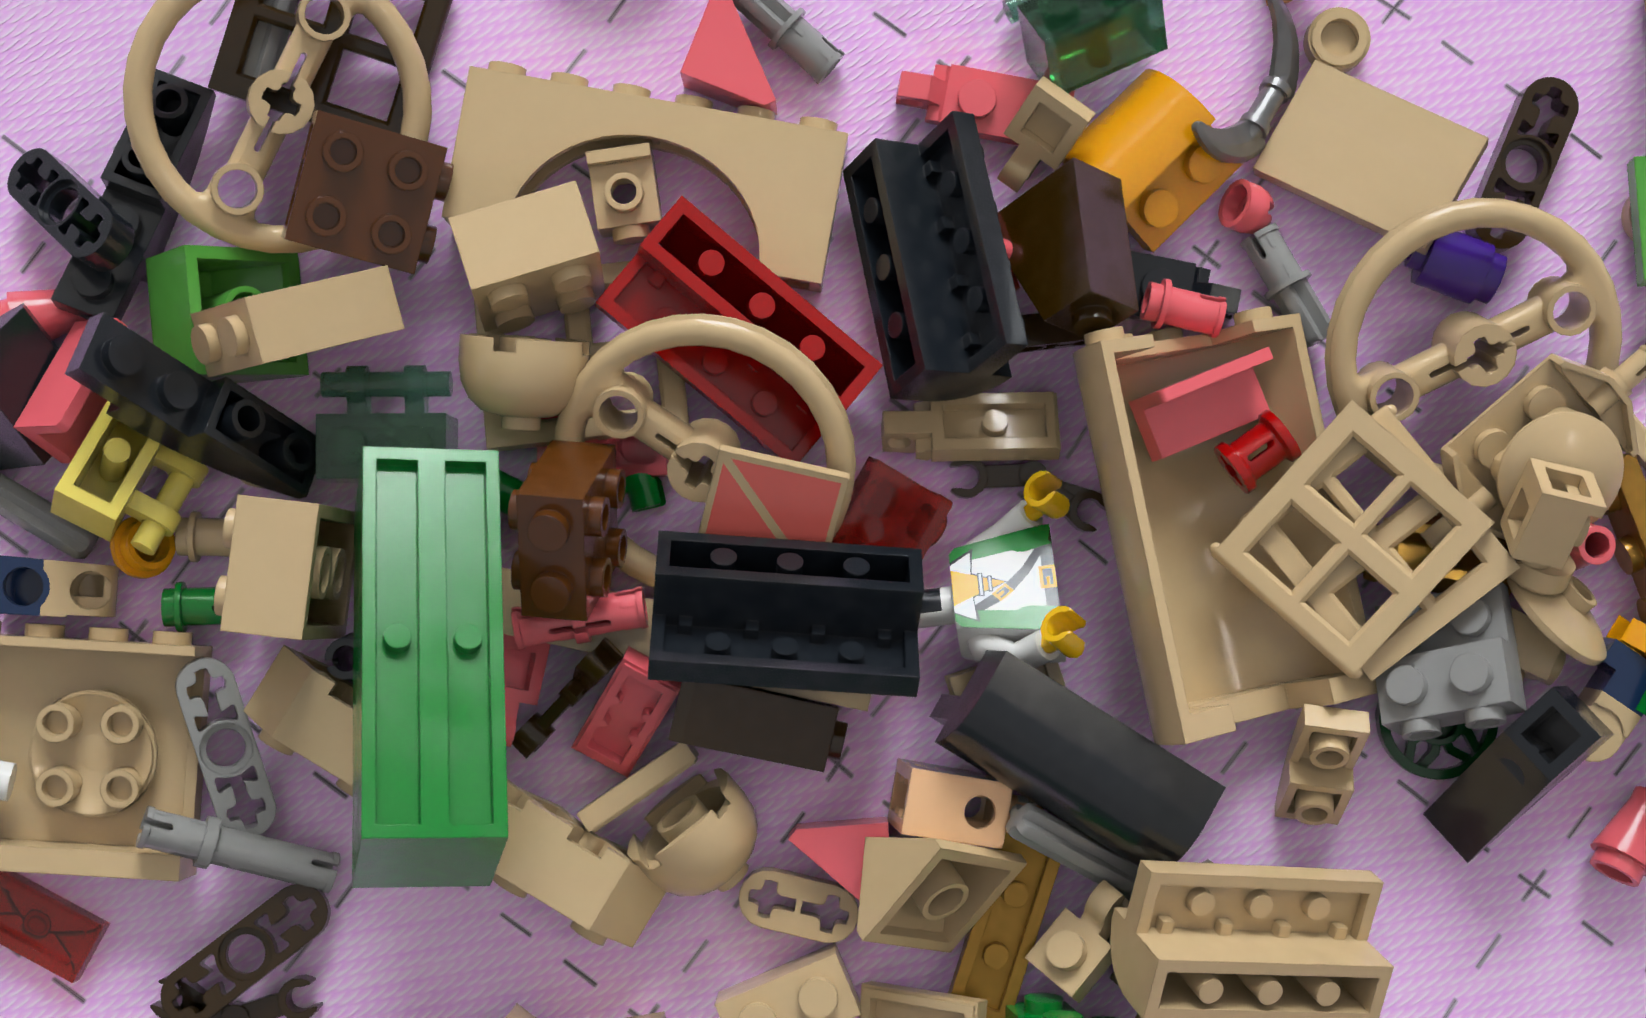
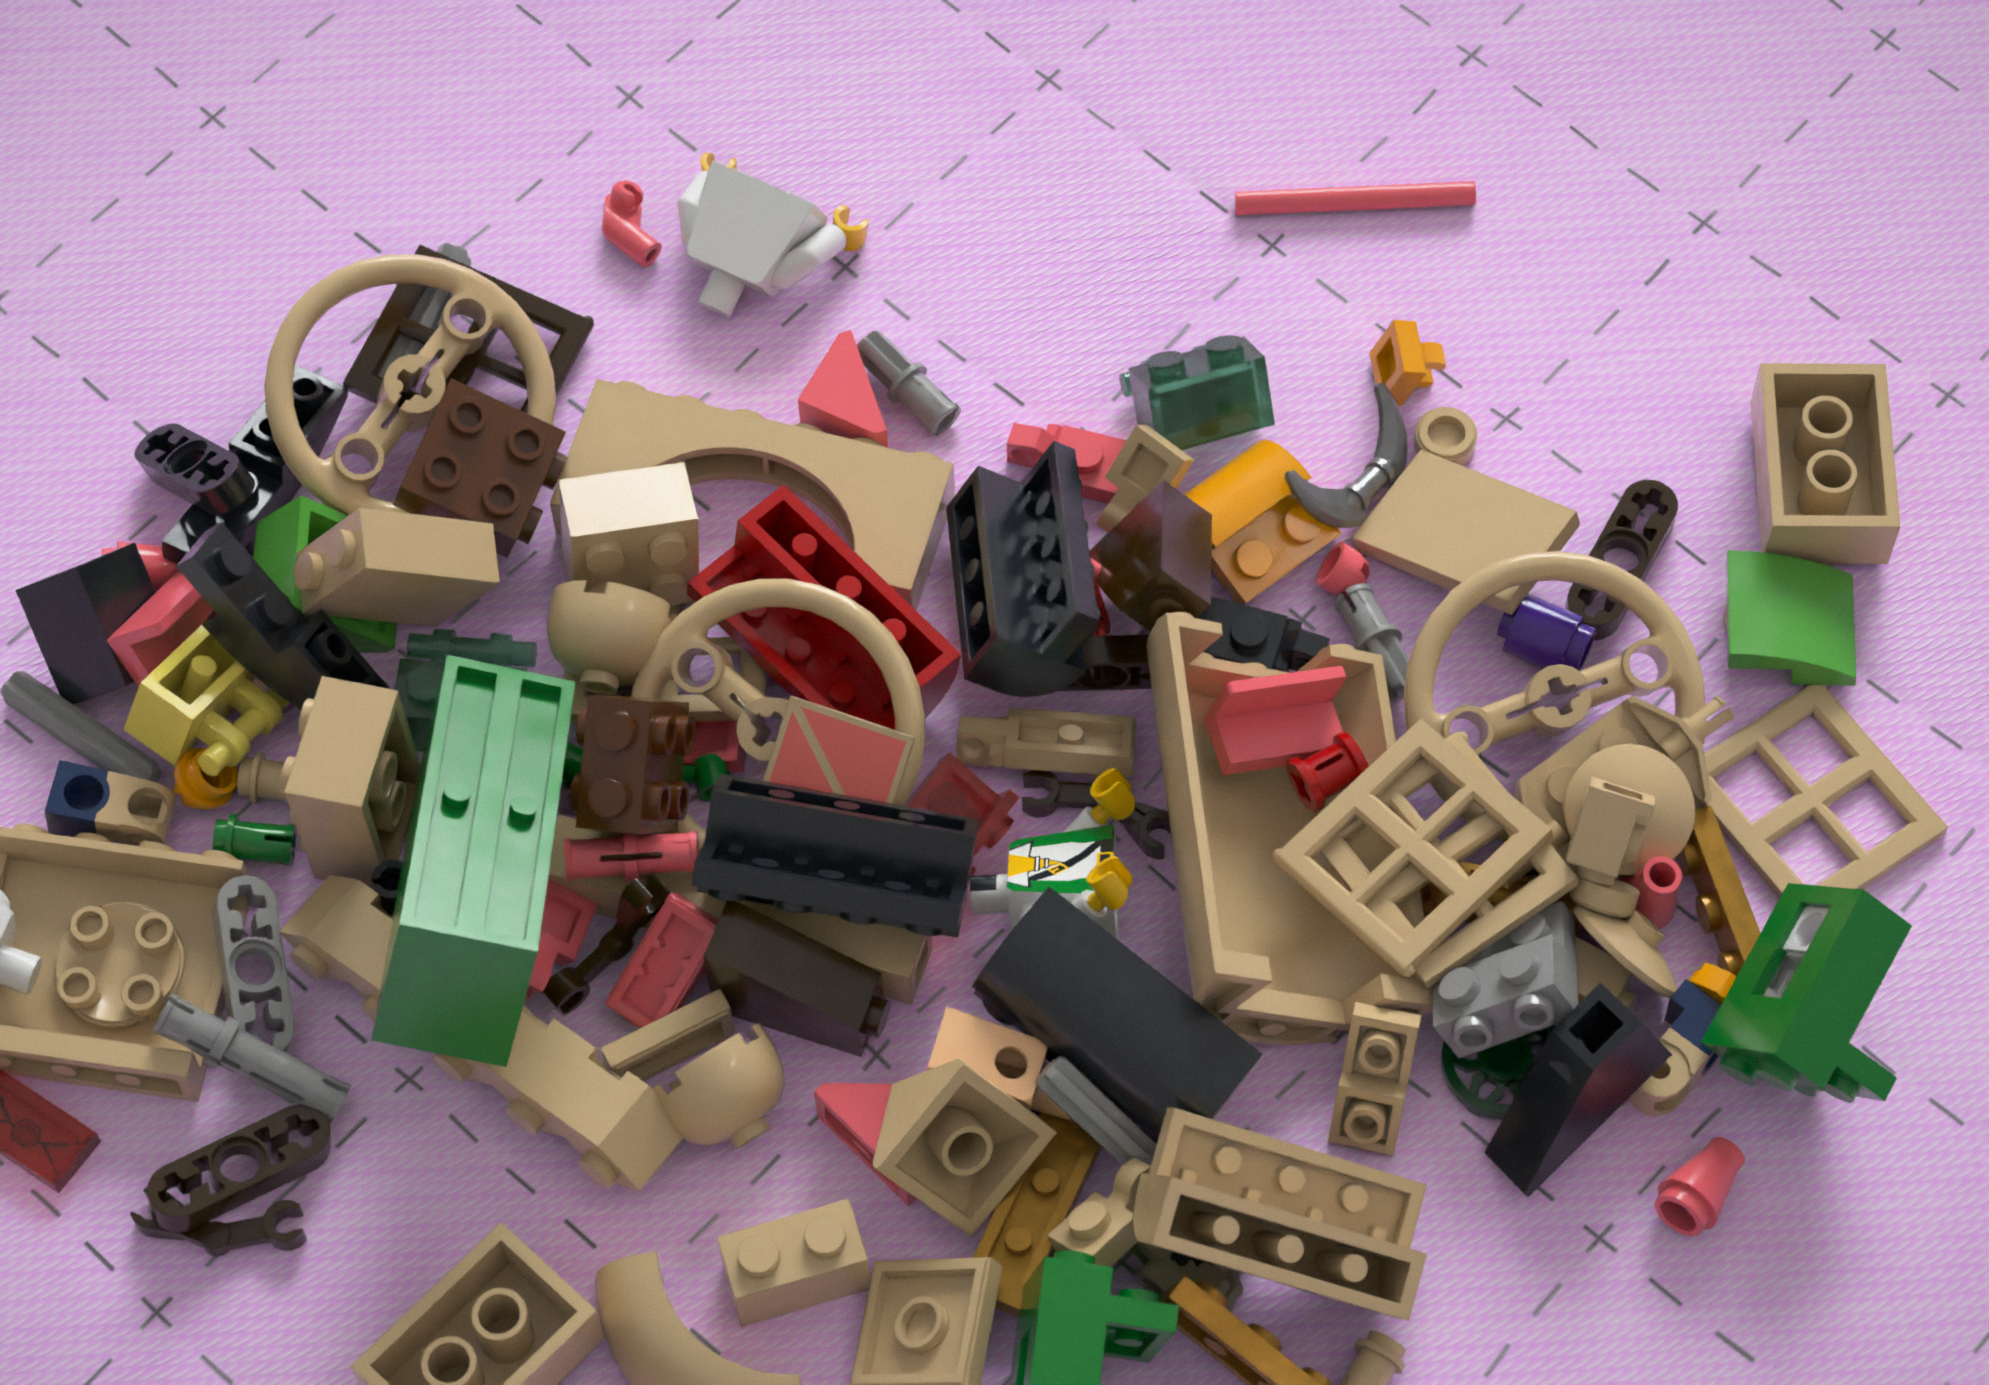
camera: 10 degrees right, 25 degrees down
(621, 166) = (725, 494): tan brick -> none
(794, 920) = (823, 1165): tan beam -> none
(1182, 309) = (1265, 641): coral pin -> none

